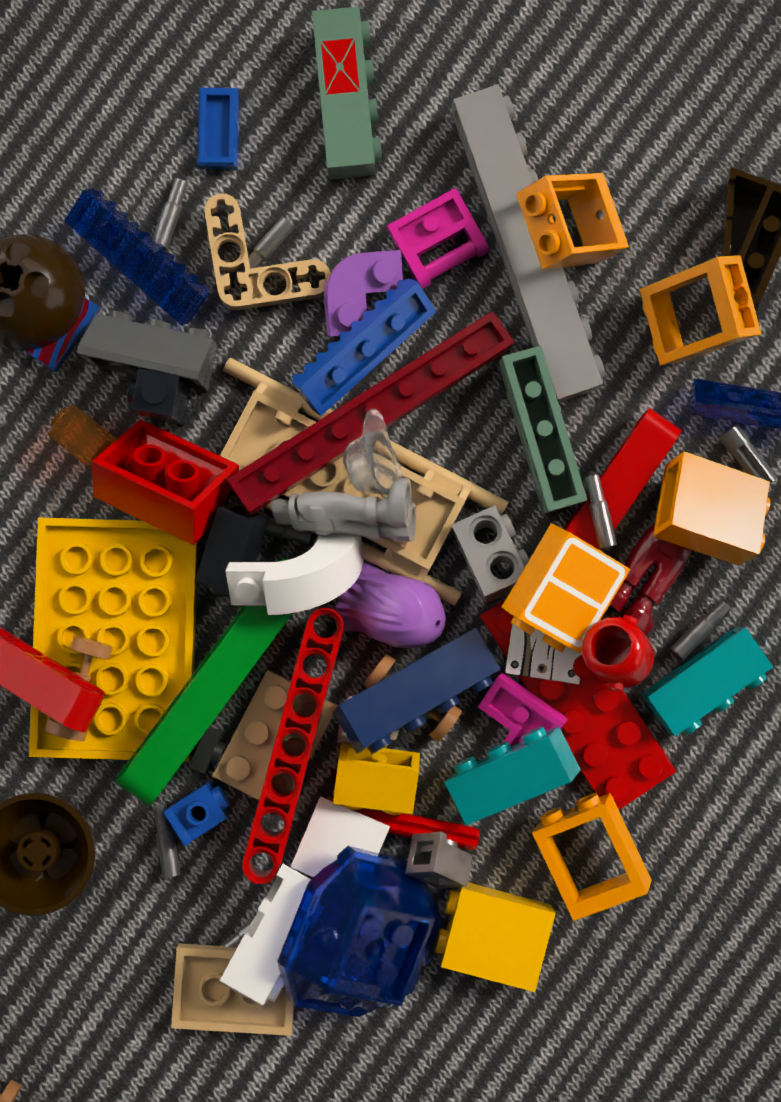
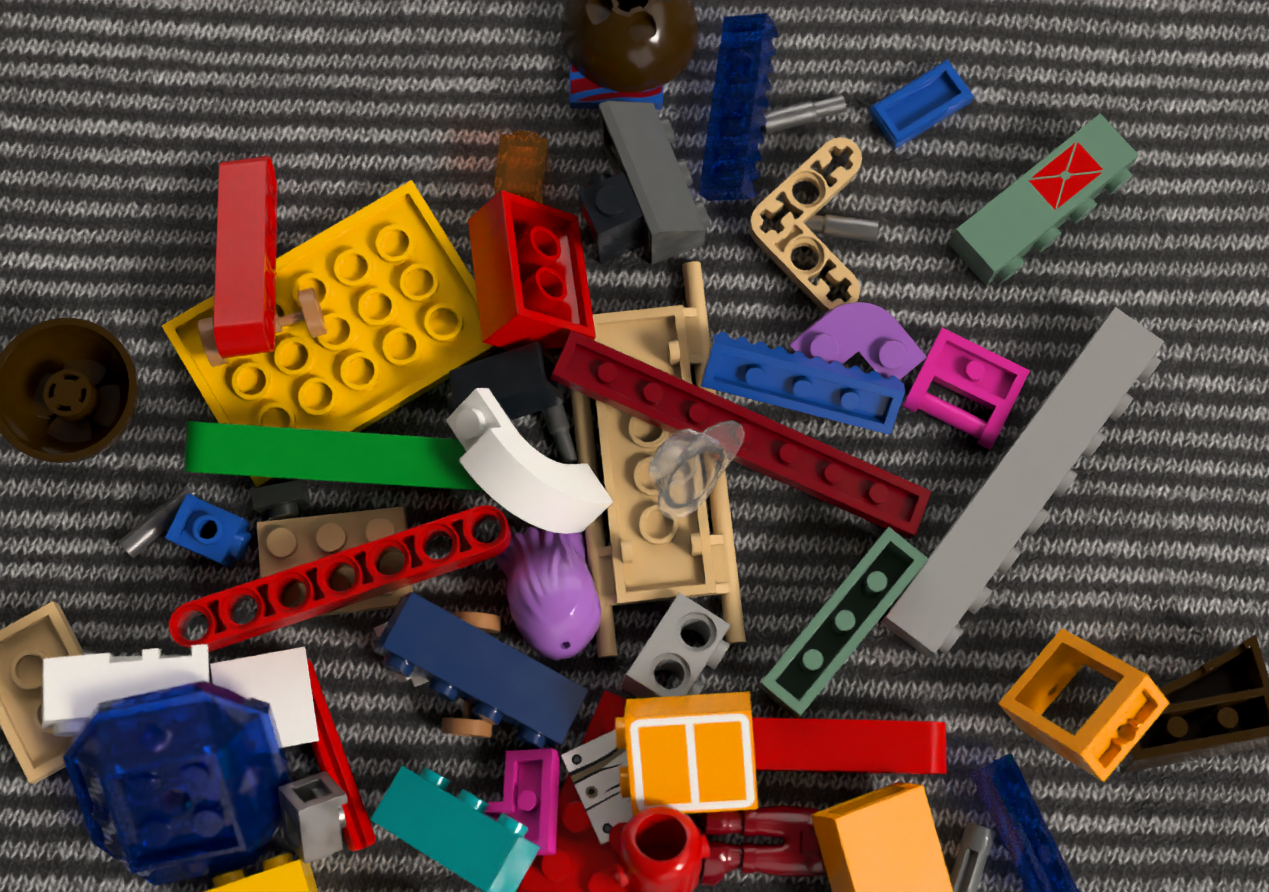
camera: 65 degrees right, 10 degrees down
(351, 514) = (615, 472): light grey piece -> none
(377, 780) = (359, 693): yellow brick -> none
(587, 197) = (1117, 511): light orange window -> none
(600, 513) = (796, 741): flat silver pin -> none

